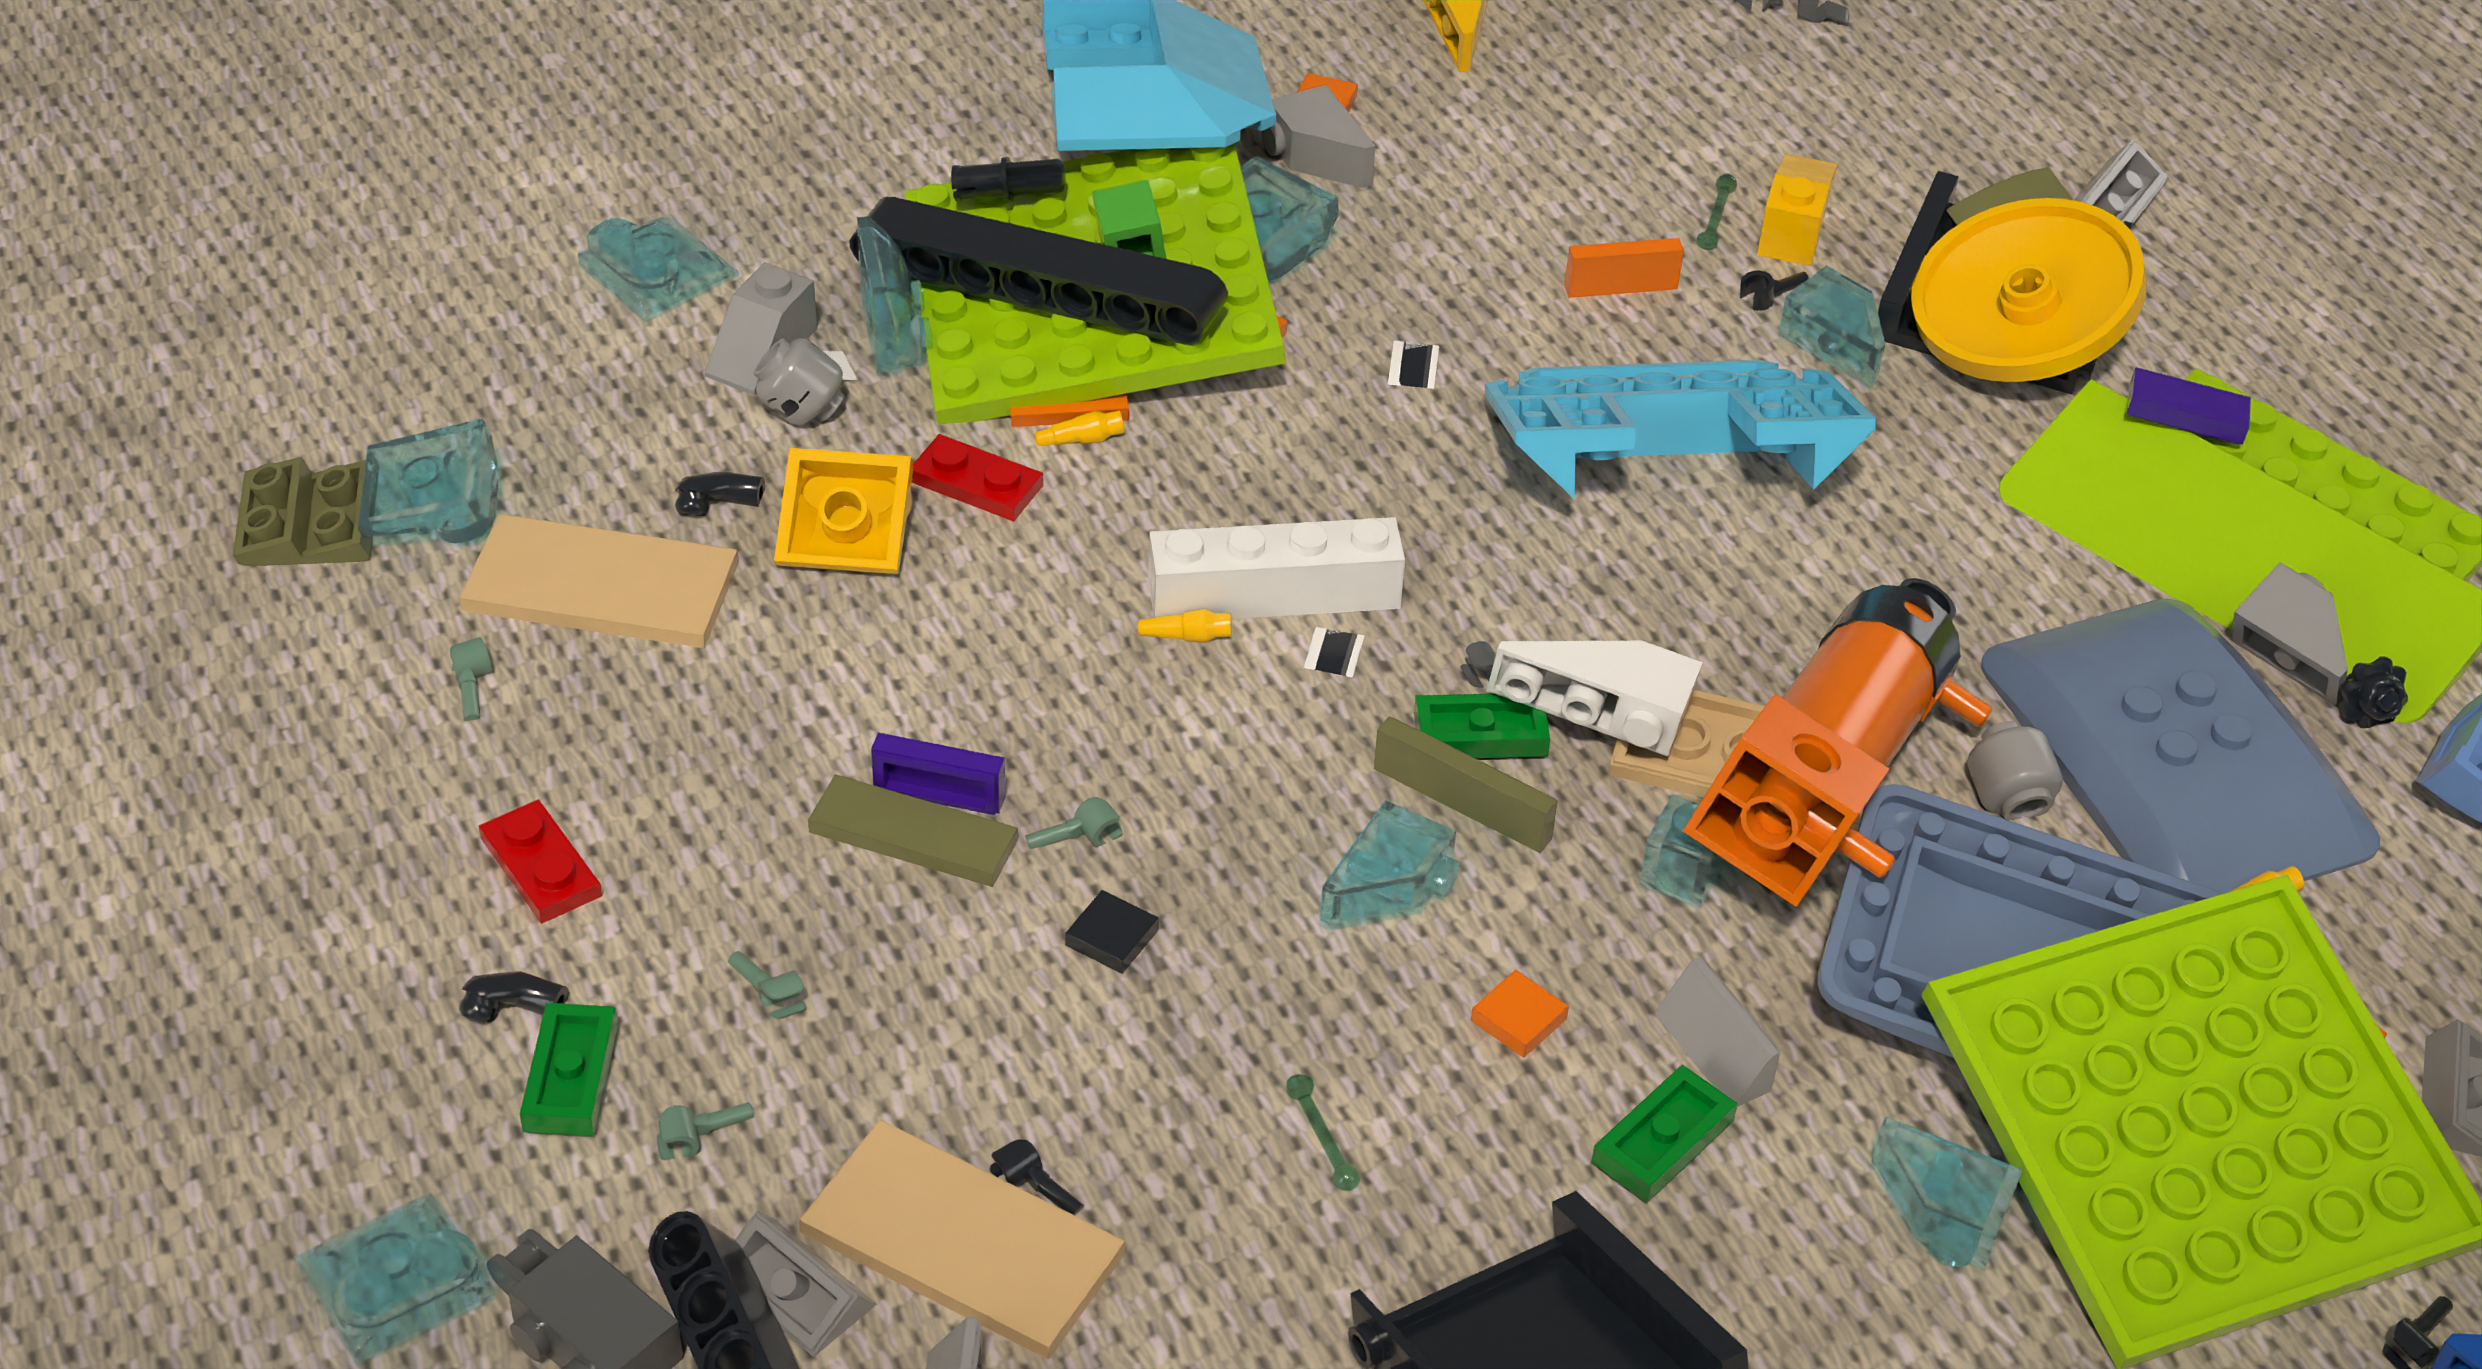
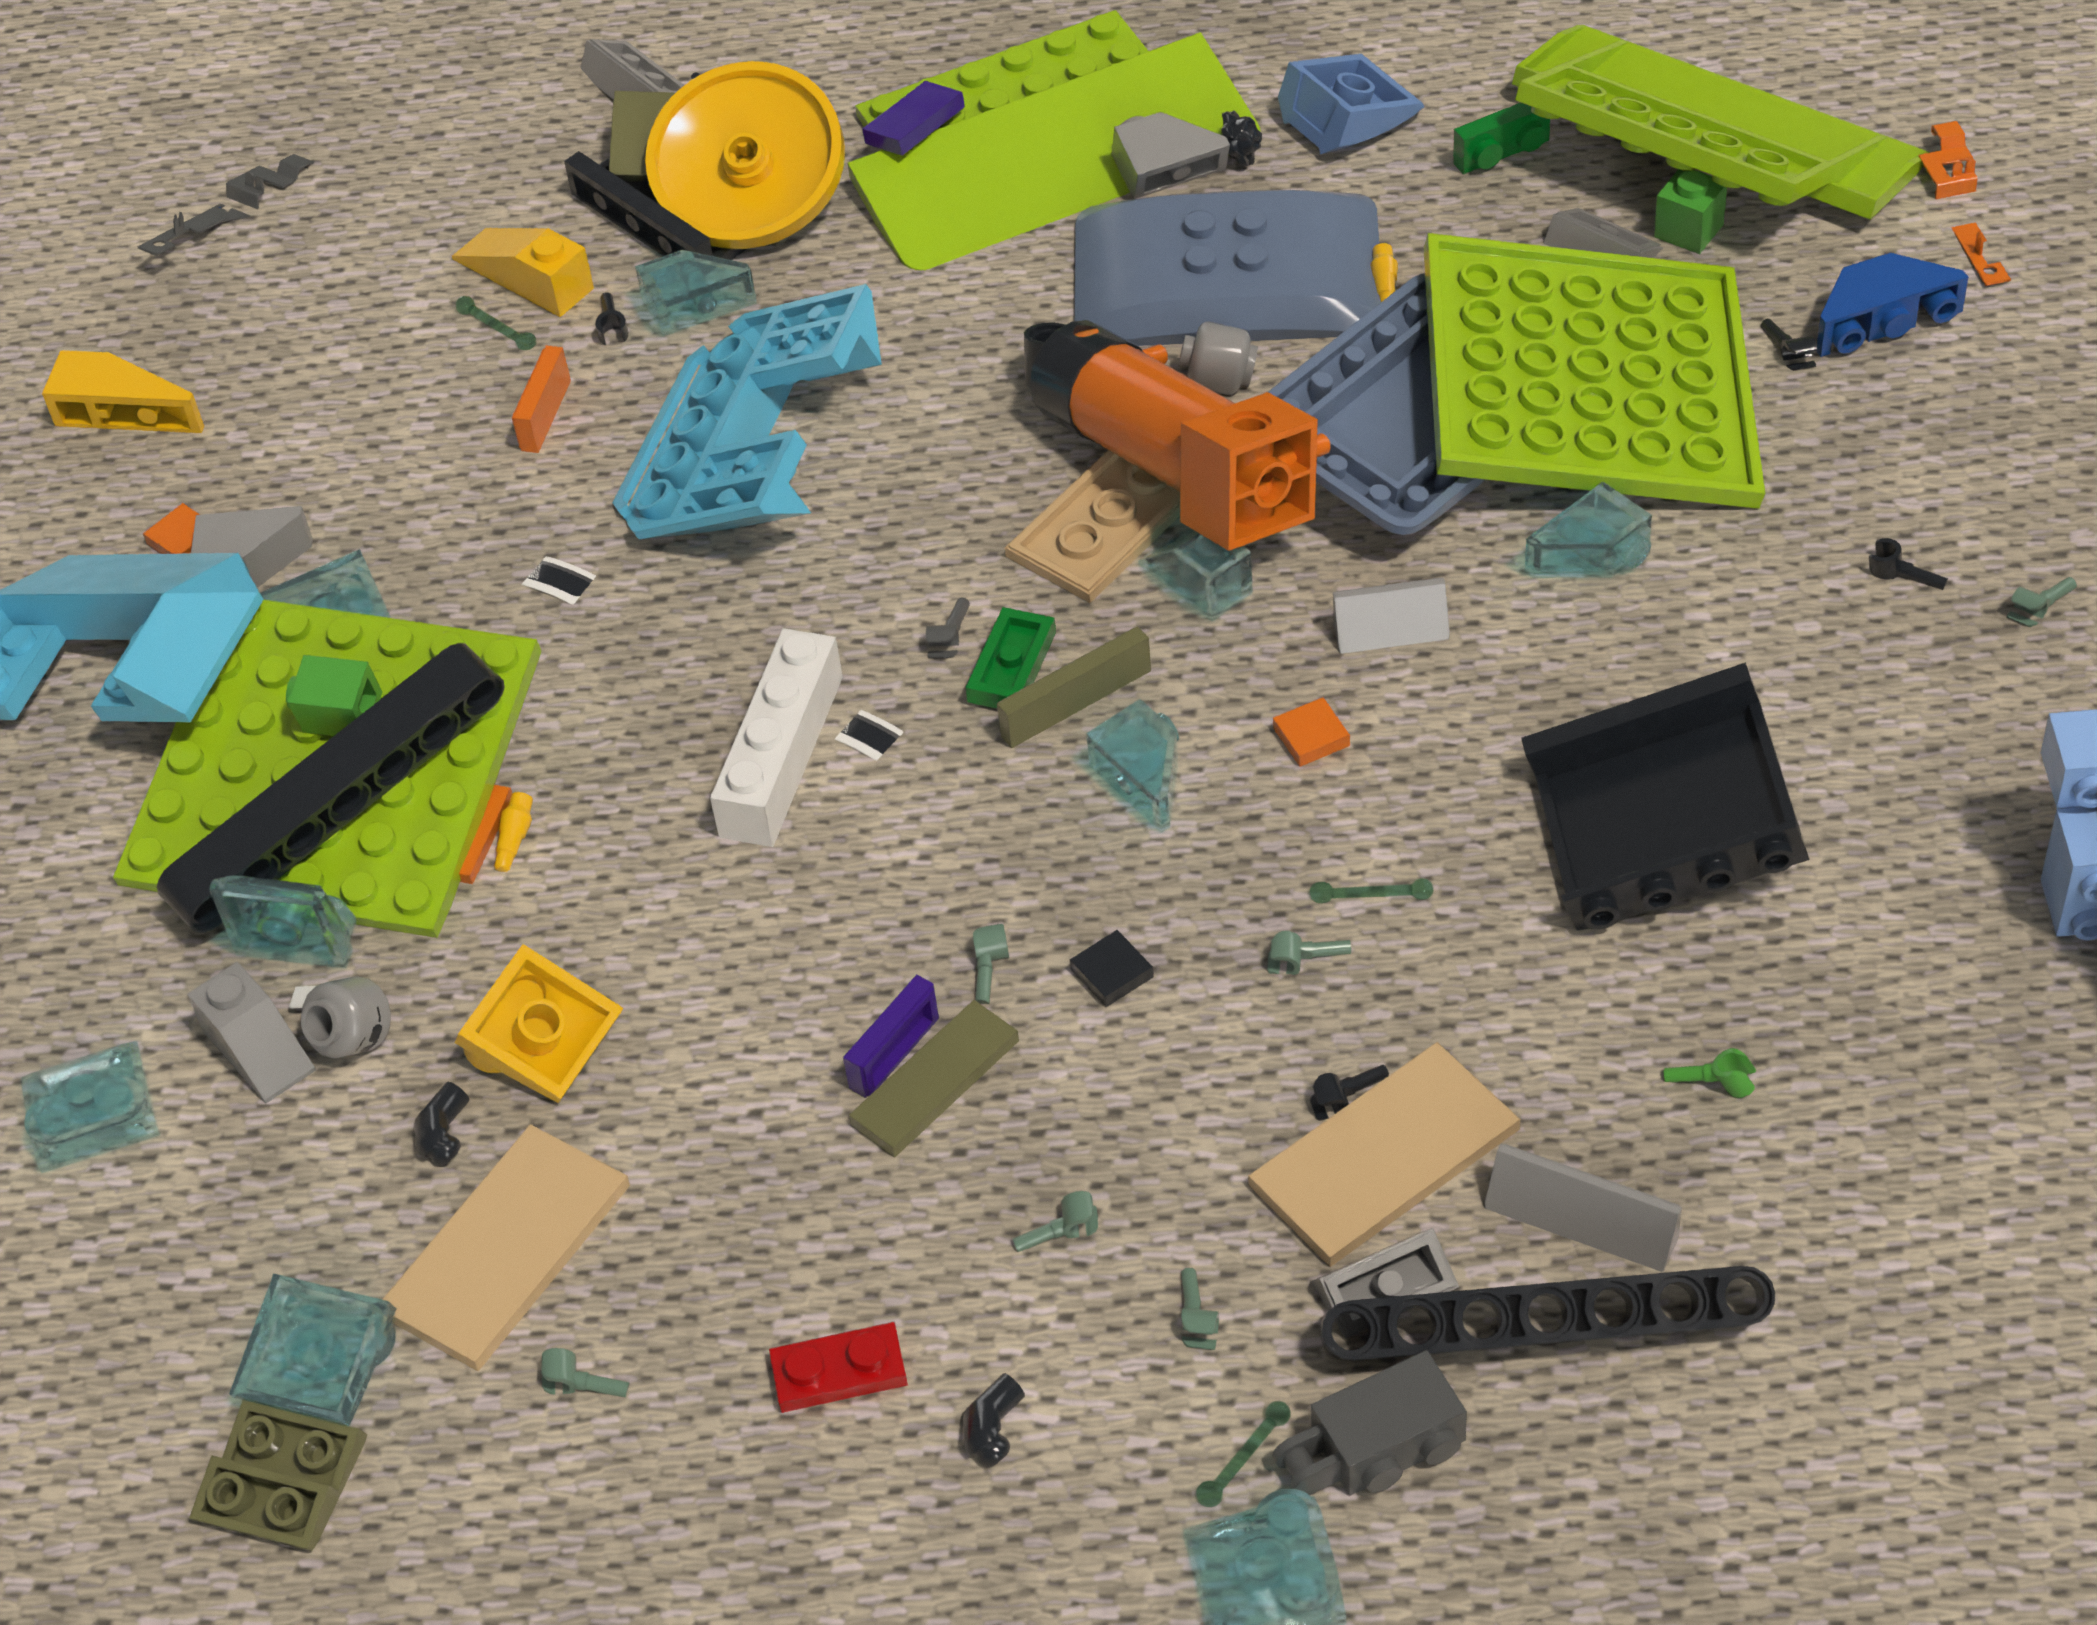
camera: 60 degrees left, 5 degrees up
(482, 1204) = (1211, 1492): none -> clear green hinge
(569, 1069) = (1099, 1389): green plate -> none
(976, 477) = (531, 920): red plate -> none
(1007, 179) = (186, 779): black axle -> none
(1191, 626) = (794, 821): yellow piece -> none
(1198, 1074) = (1290, 948): none -> sand green hand
(1608, 686) = (1041, 551): white slope -> none
(1664, 1133) = (1467, 680): green plate -> none

